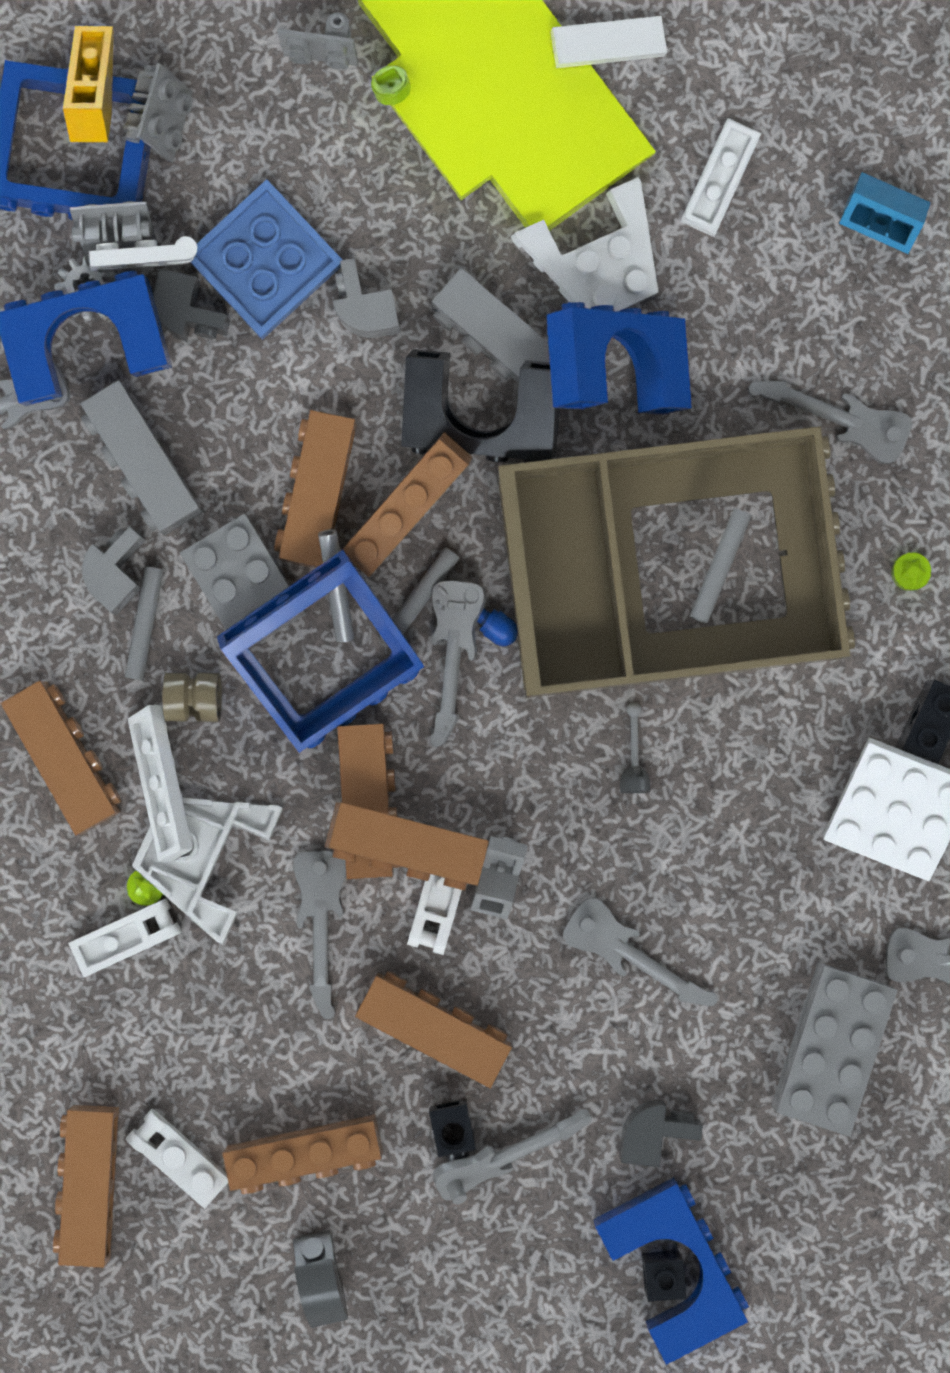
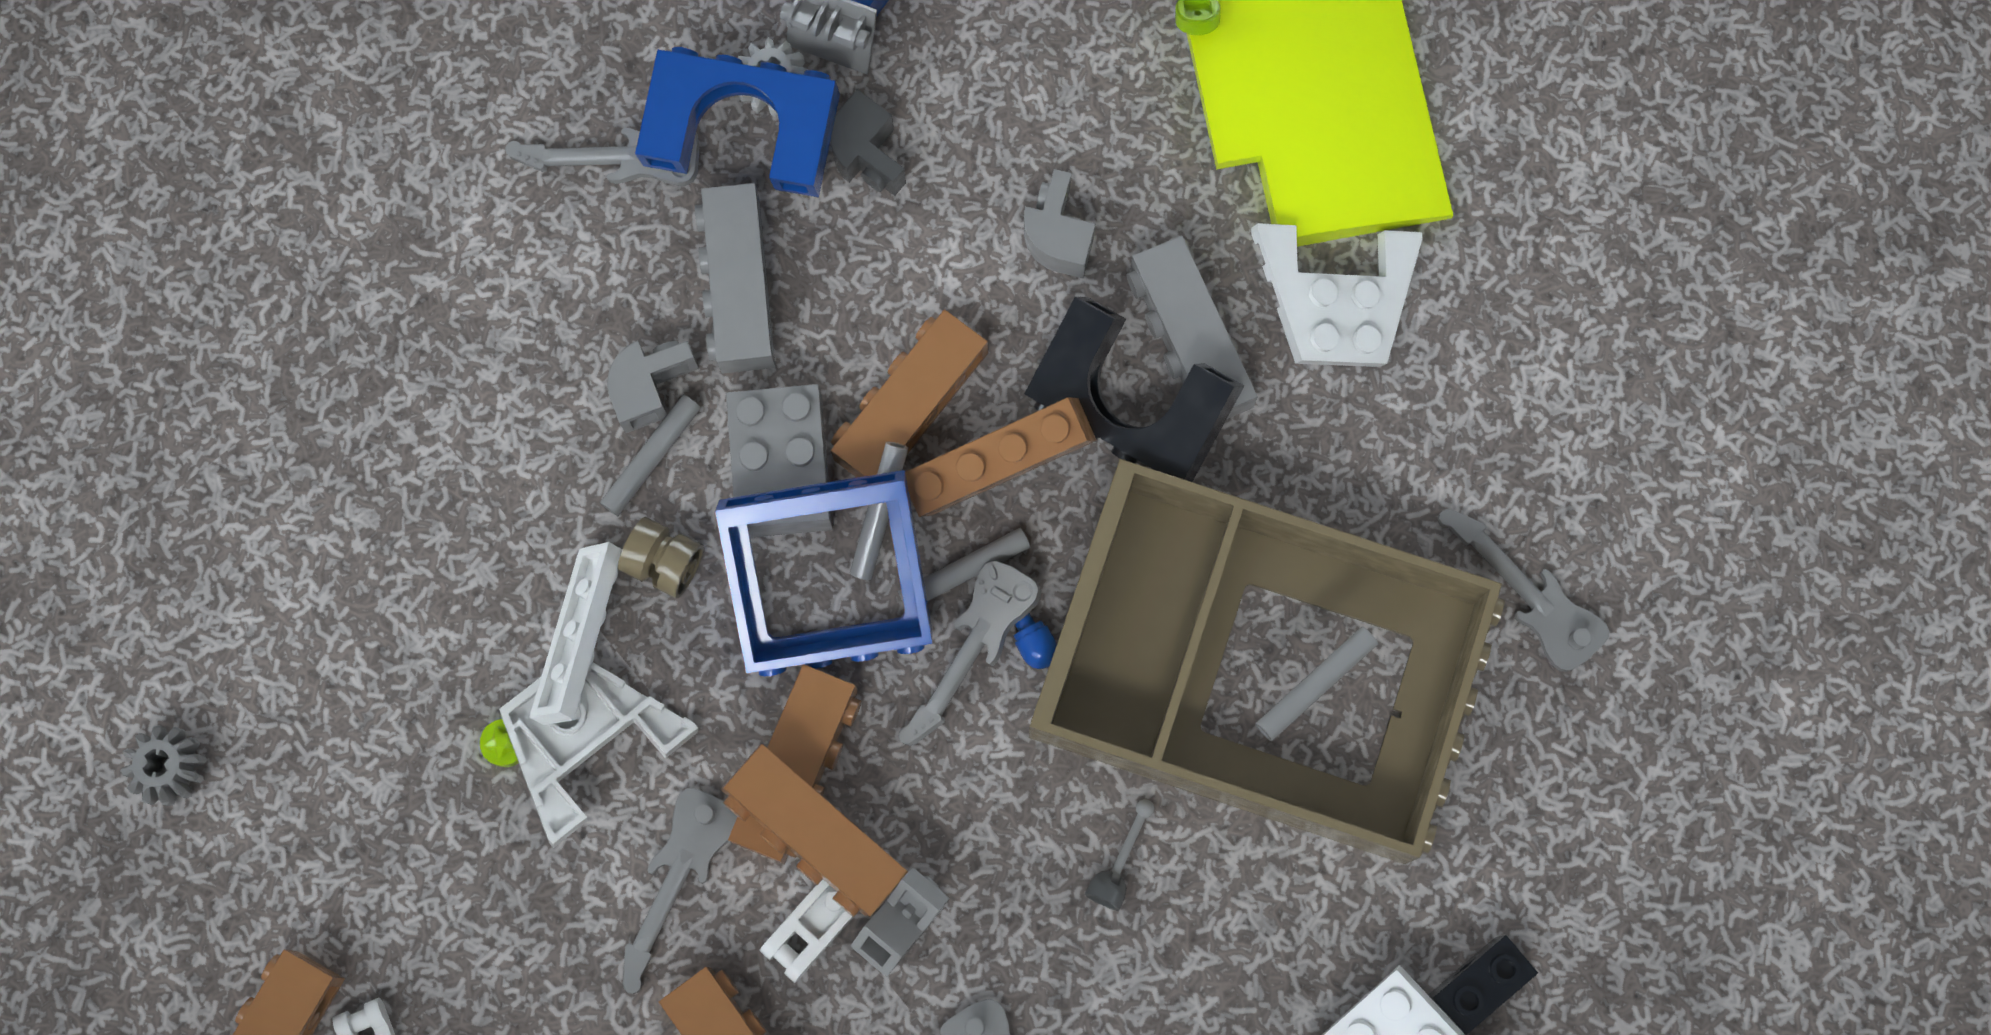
camera: 25 degrees right, 10 degrees down
(61, 757) = (486, 555): medium nougat brick -> none
(123, 938) = (449, 788): white plate -> none
(145, 254) = (846, 65): white plate -> none
(265, 259) = (974, 134): medium blue plate -> none
(608, 41) = (1454, 78): white tile -> none
(653, 341) = (1355, 408): blue arch -> none
(720, 177) = (1512, 275): white tile -> none
(885, 213) = (1679, 392): dark azure brick -> none
(911, 571) = (1533, 803): lime tile -> none

